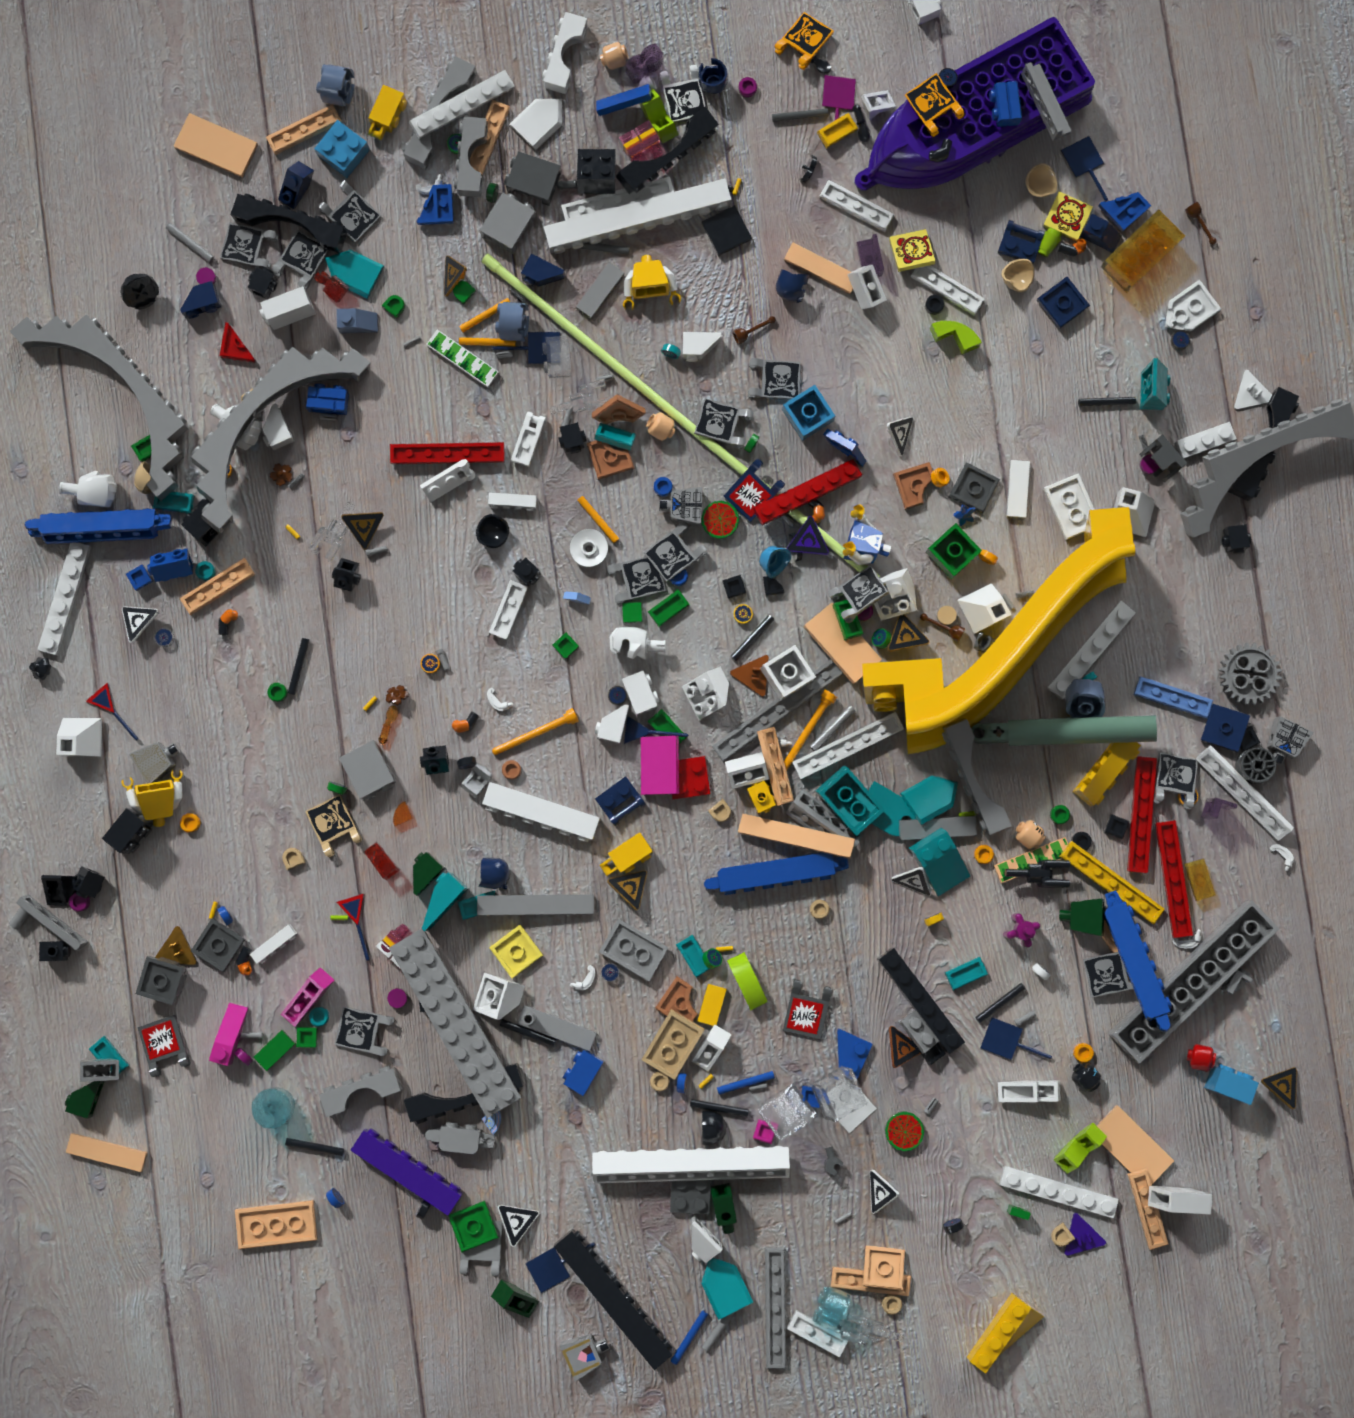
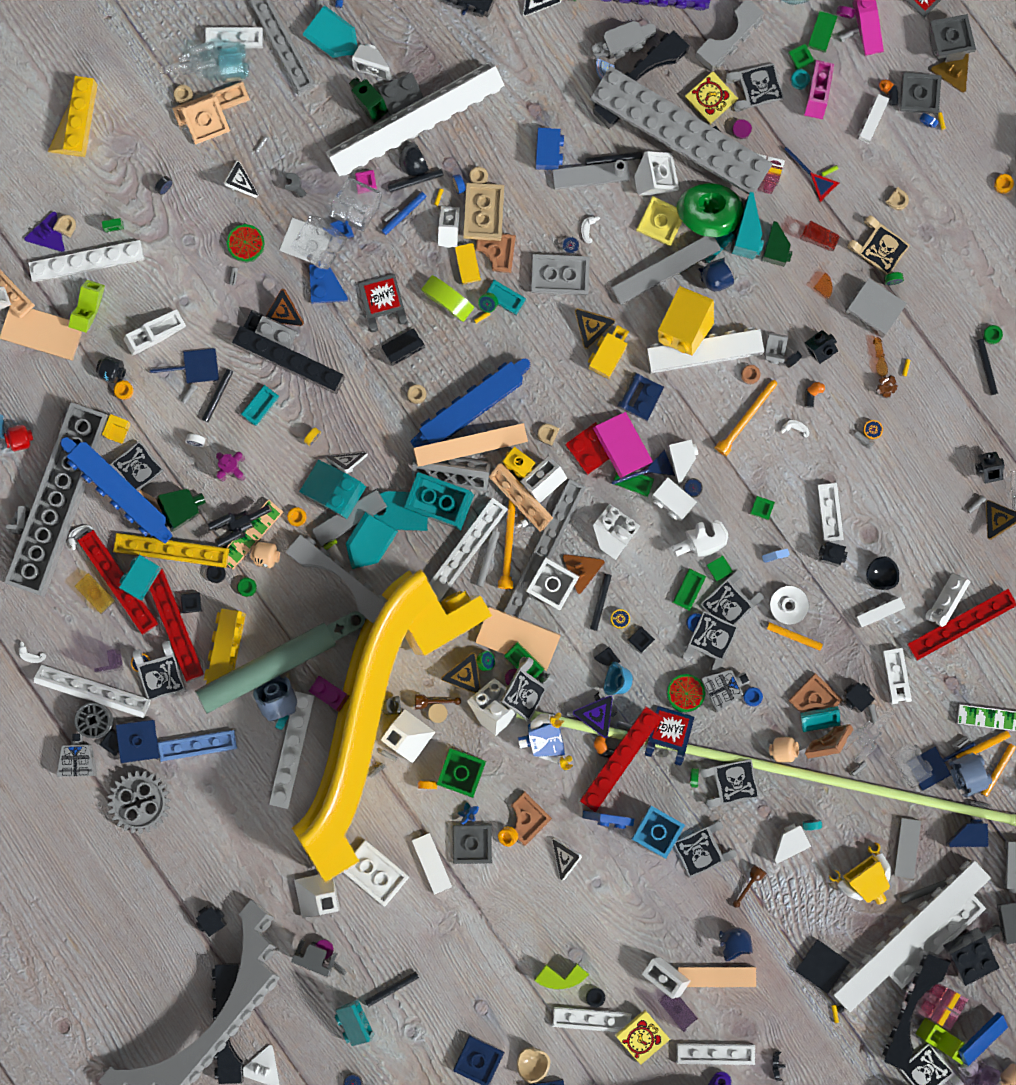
camera: 155 degrees right, 0 degrees up
(409, 1042) = (711, 98): none -> light yellow tile
(467, 936) = (710, 209): none -> green hat
(545, 843) = (687, 321): none -> yellow slope
(809, 959) = (403, 347): none -> black panel
(1034, 681) = (329, 693): none -> magenta plate
(1107, 1019) = (116, 429): none -> yellow panel
(1153, 870) = (139, 577): none -> teal brick
(1205, 440) = (283, 999): white plate -> none

